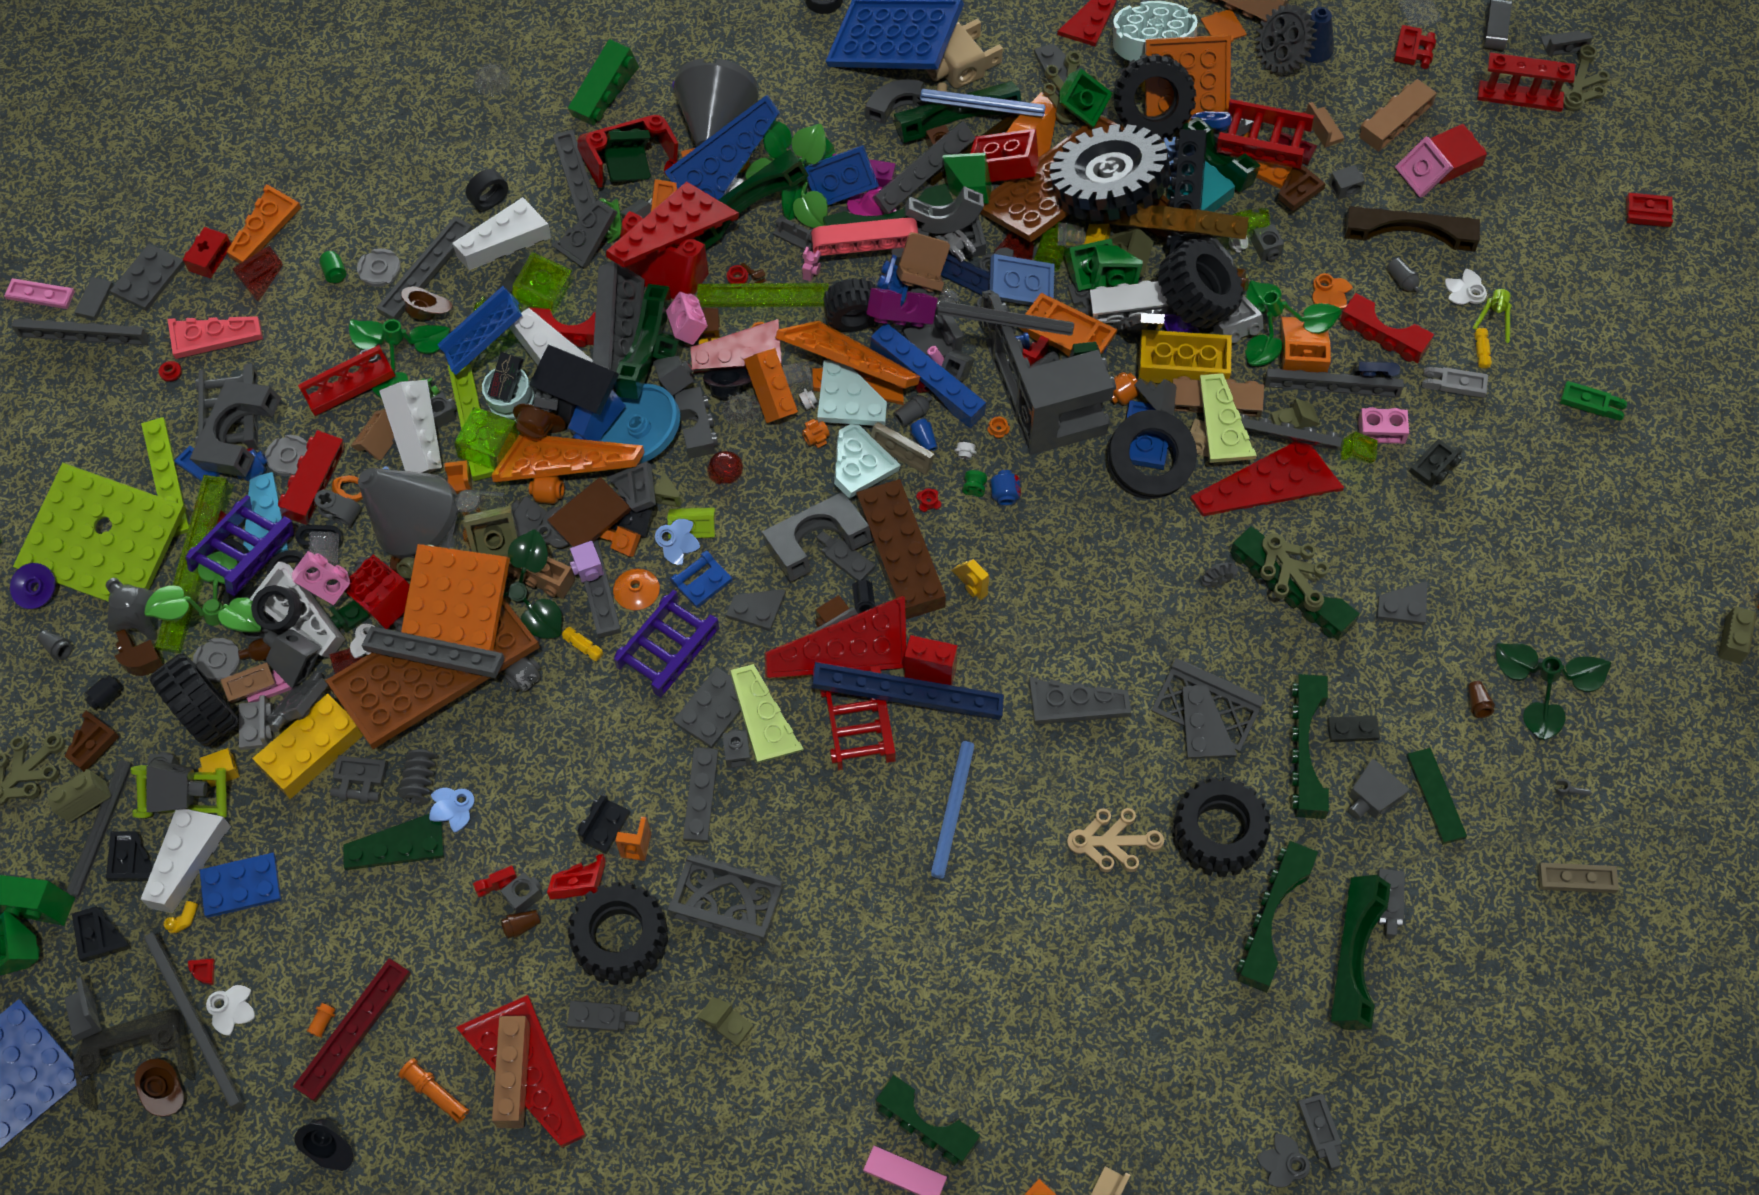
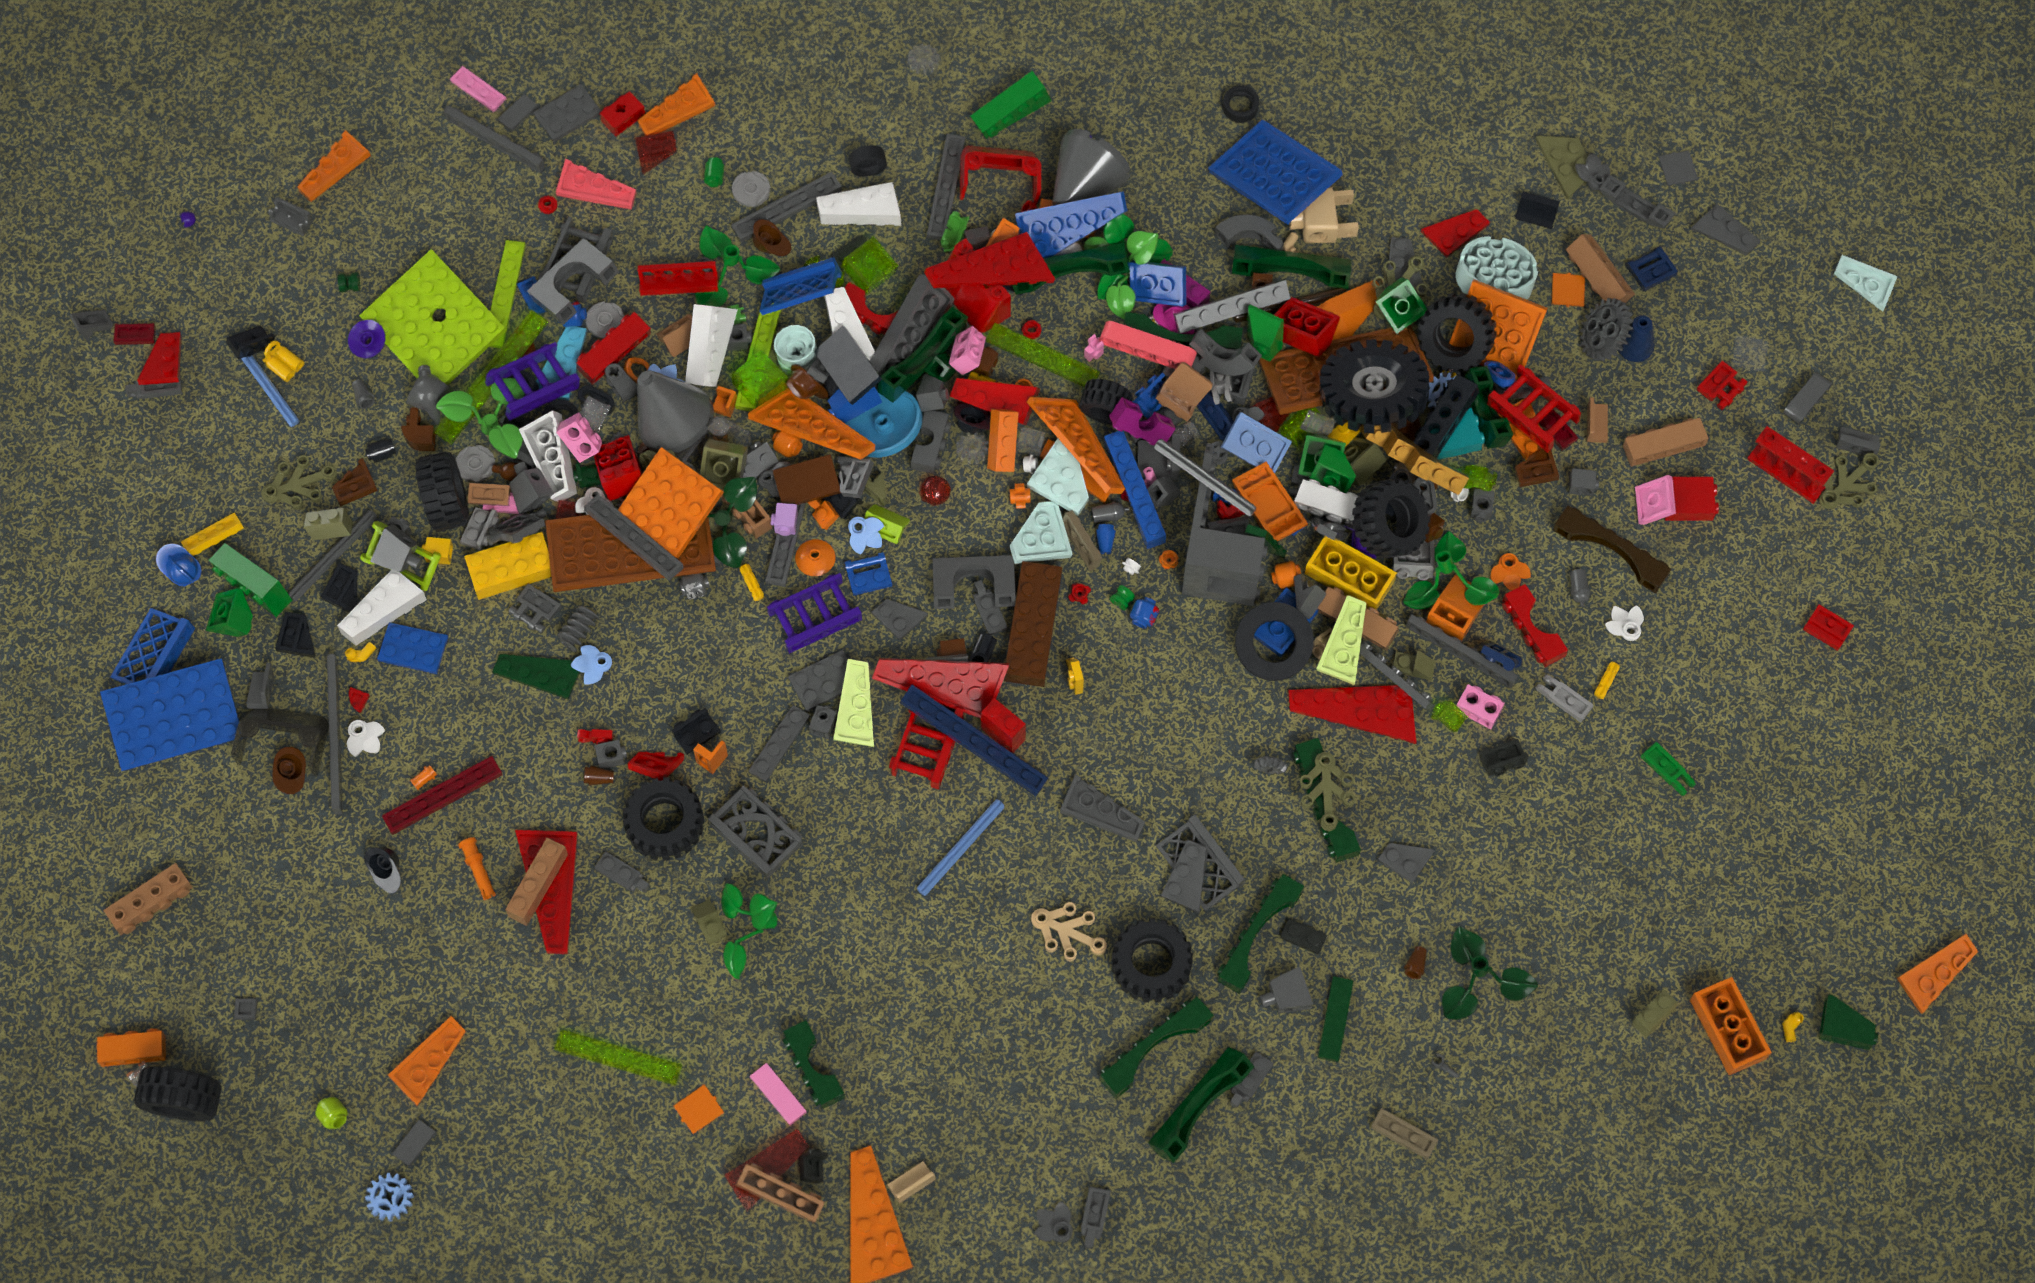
camera: 25 degrees right, 5 degrees up
(259, 602) = (520, 443): black tyre -> none
(505, 377) = (797, 336): black tile -> none
(586, 236) = (926, 239): dark grey wing -> none
(626, 155) = (995, 182): dark green bracket -> none
(755, 274) = (1046, 336): reddish brown hand -> none
(786, 982) = (762, 918): none -> green plant
(793, 233) = (1096, 312): dark grey hinge -> none
(981, 102) = (1313, 270): medium blue axle -> none
(1499, 303) = (1644, 648): lime plant -> none

